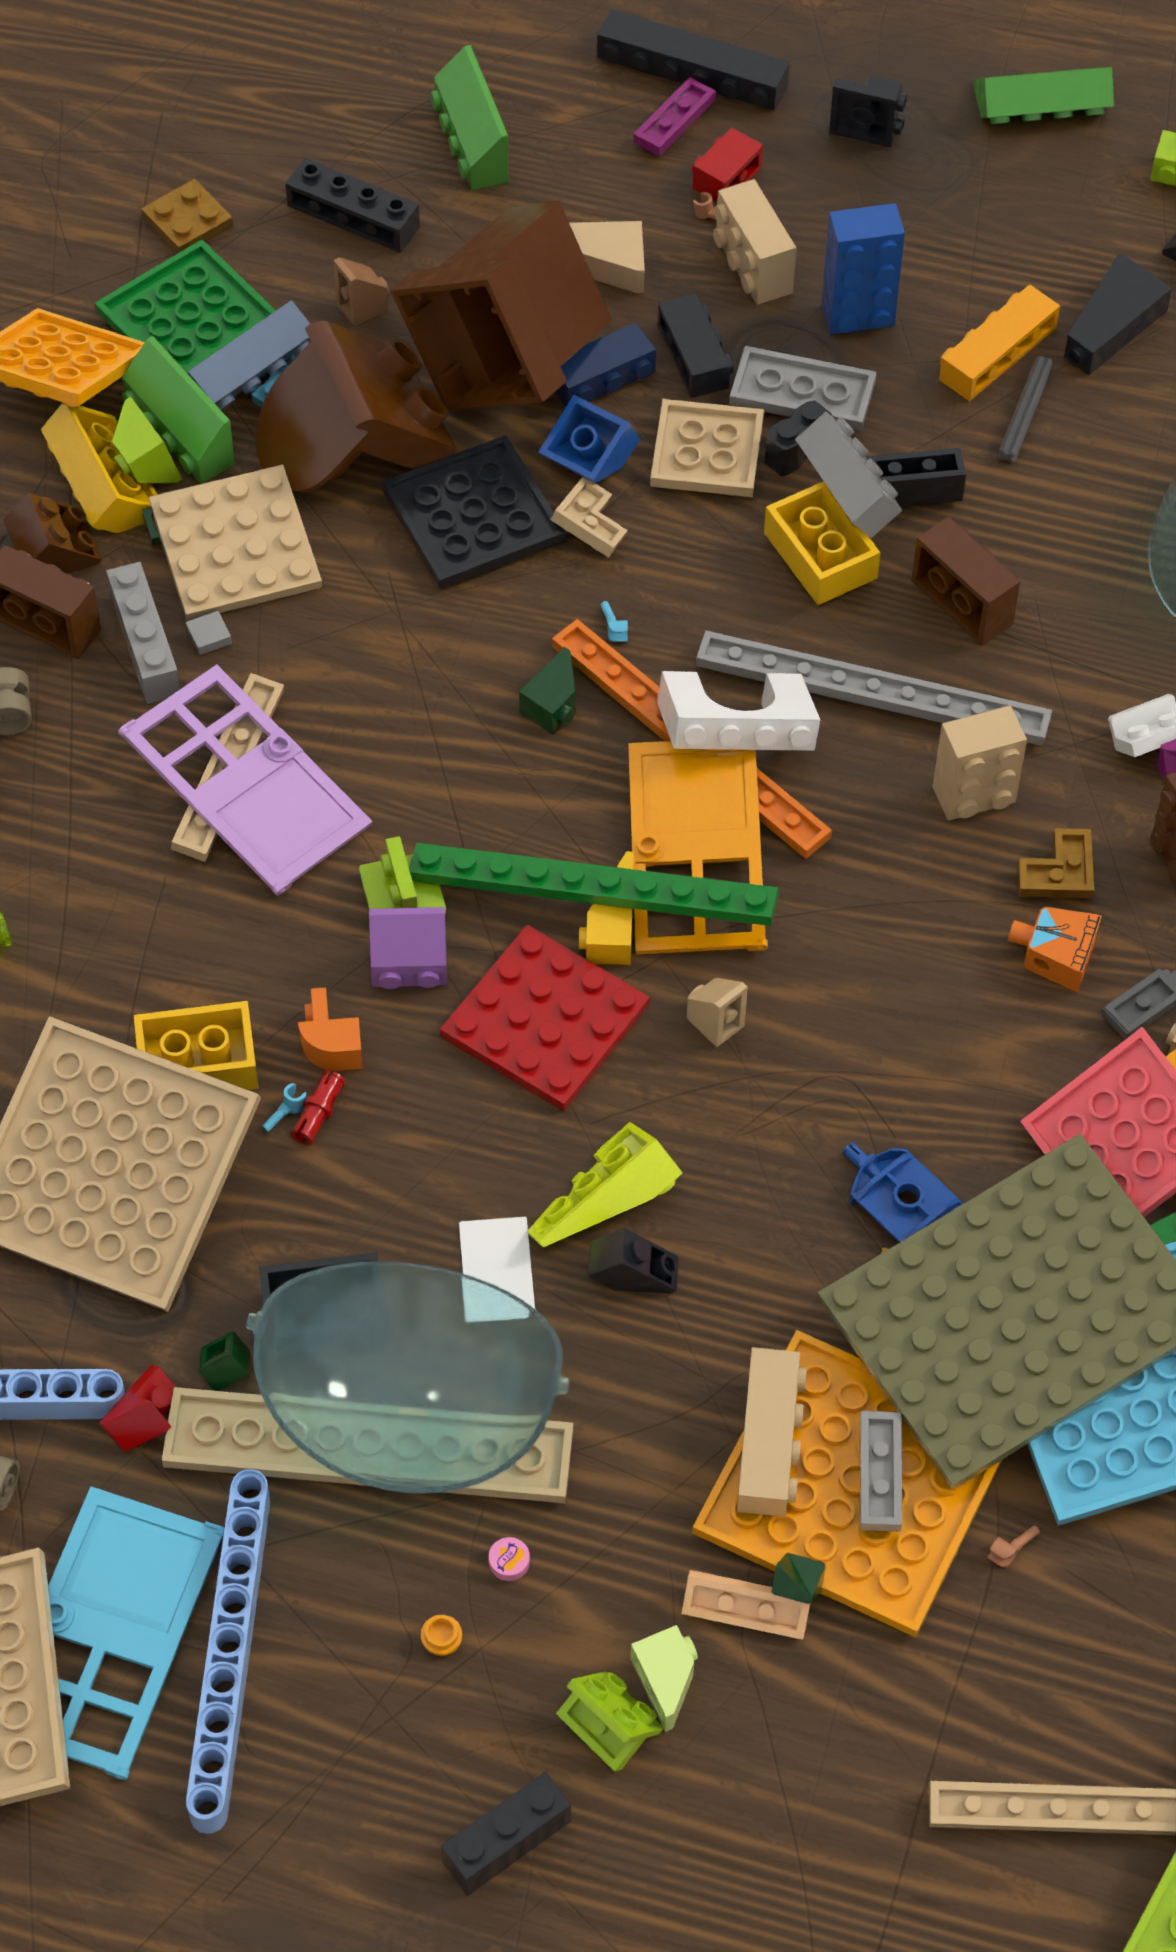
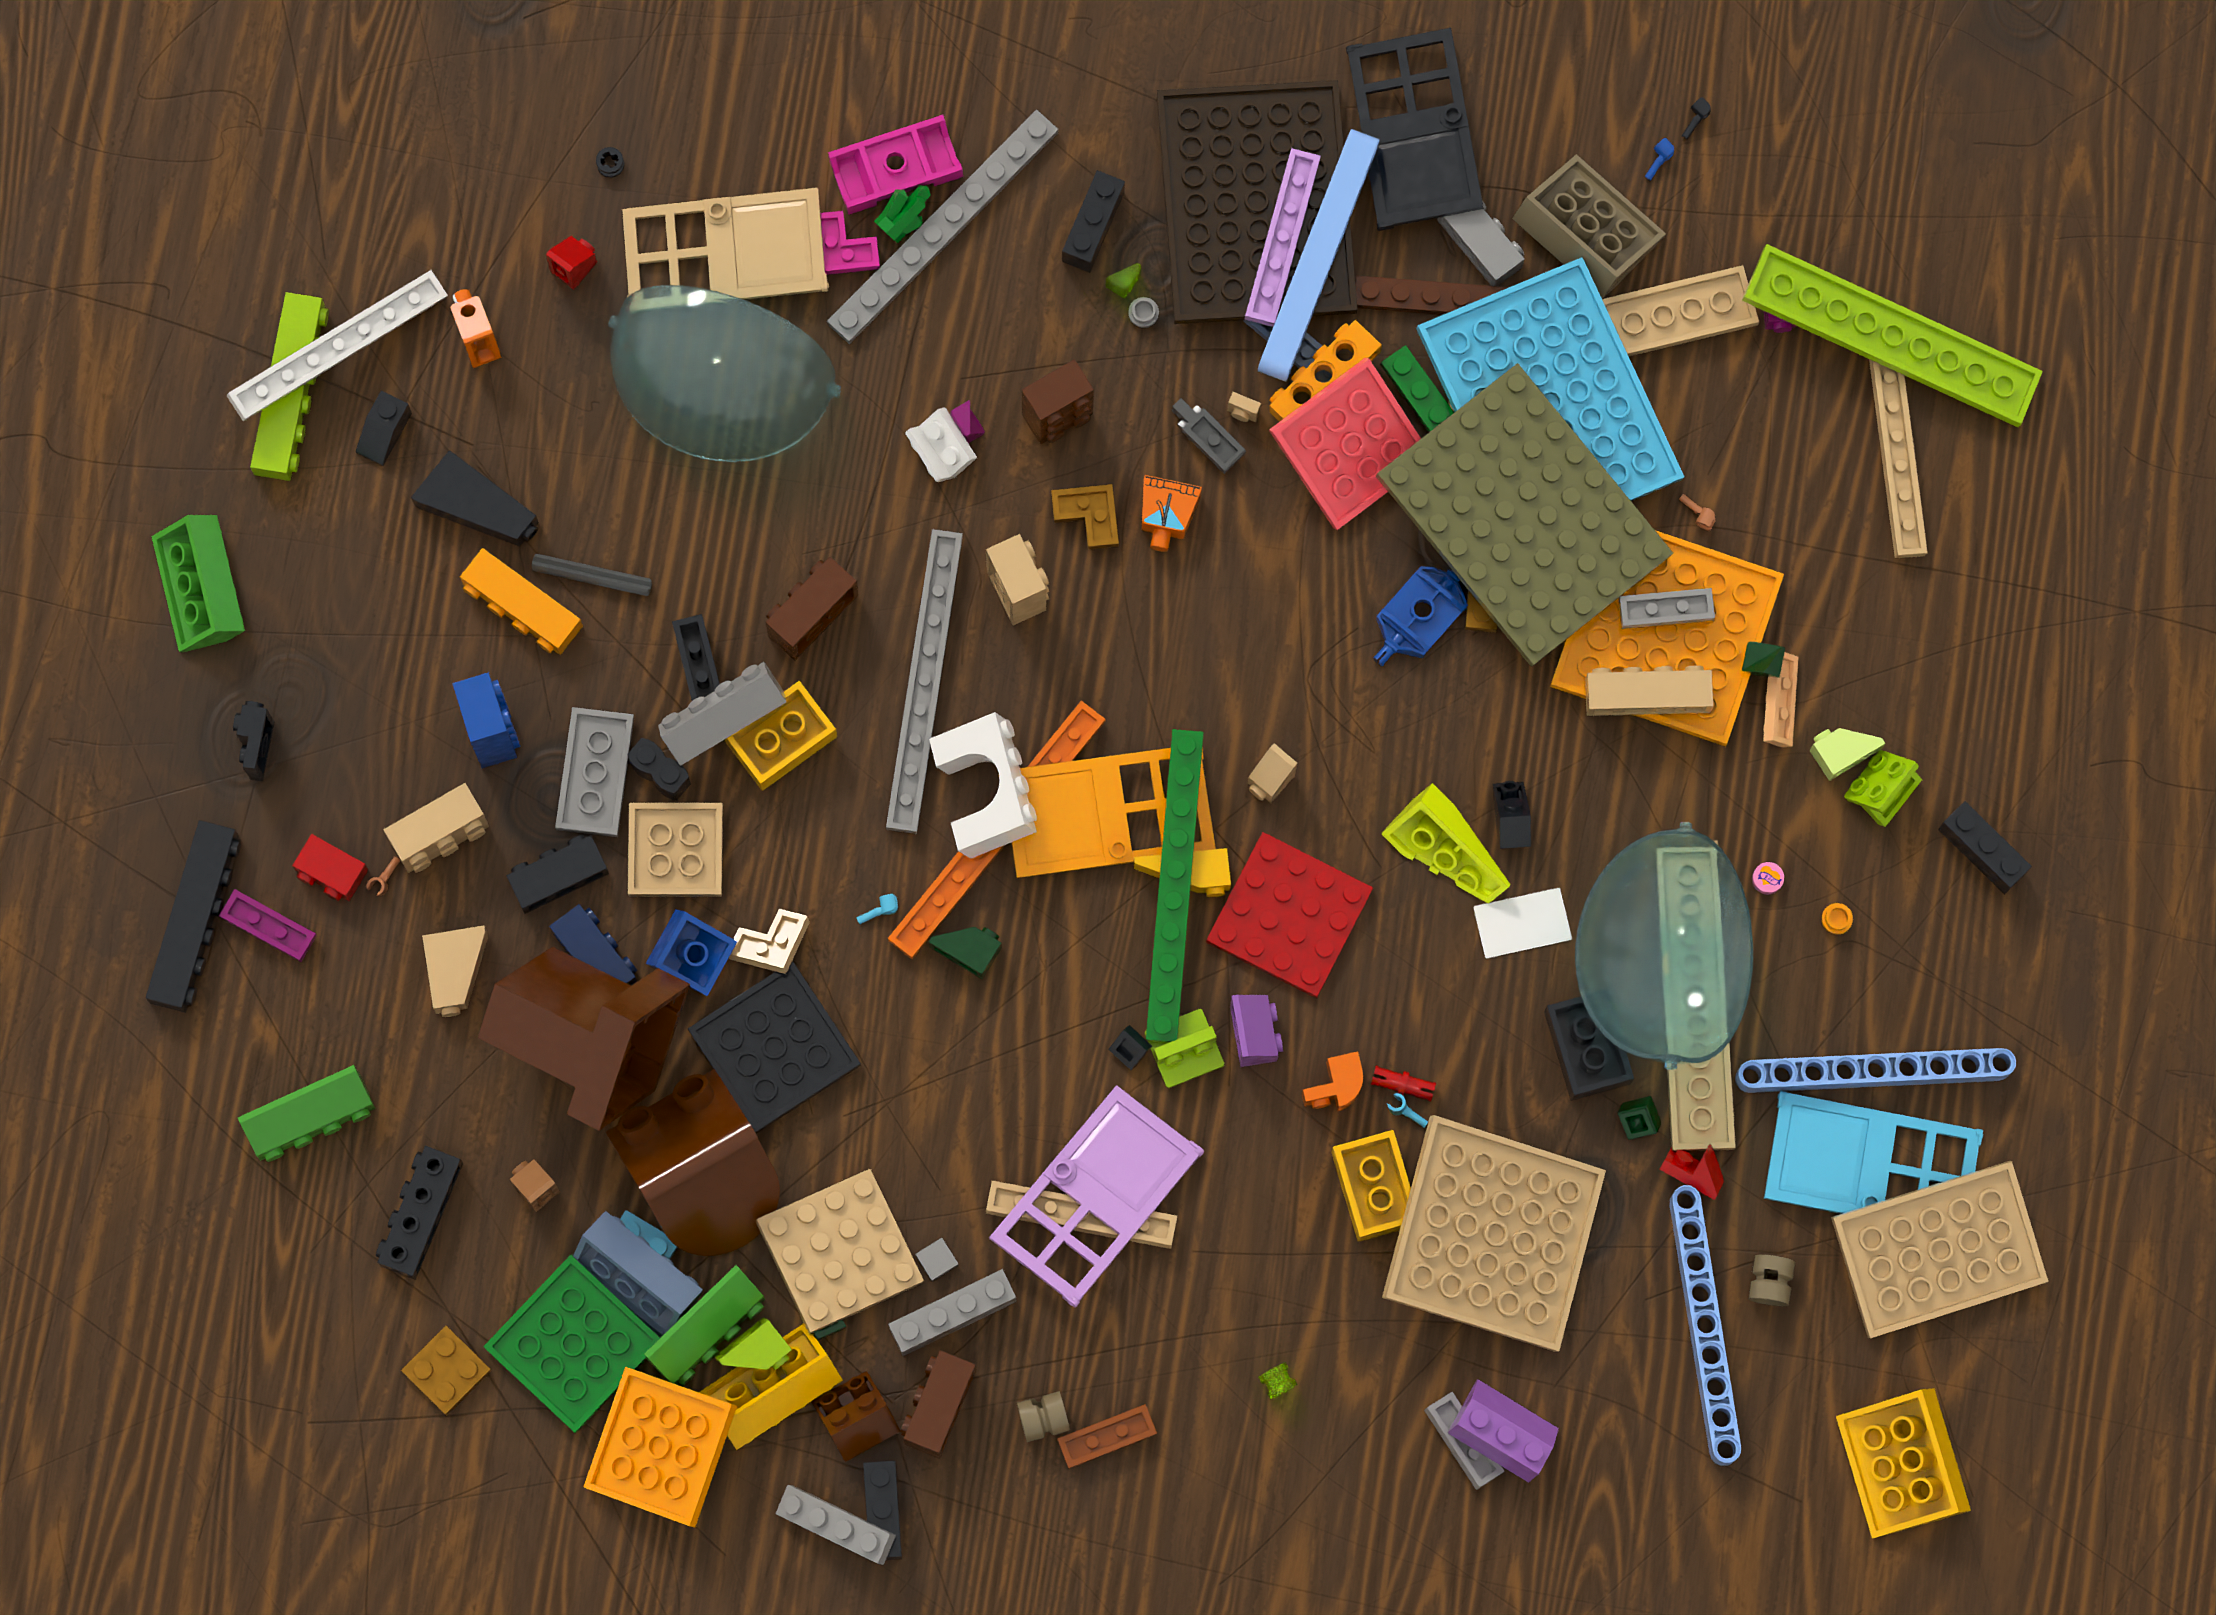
camera: 100 degrees left, 20 degrees up
(414, 831) = (1130, 1047): none -> black plate

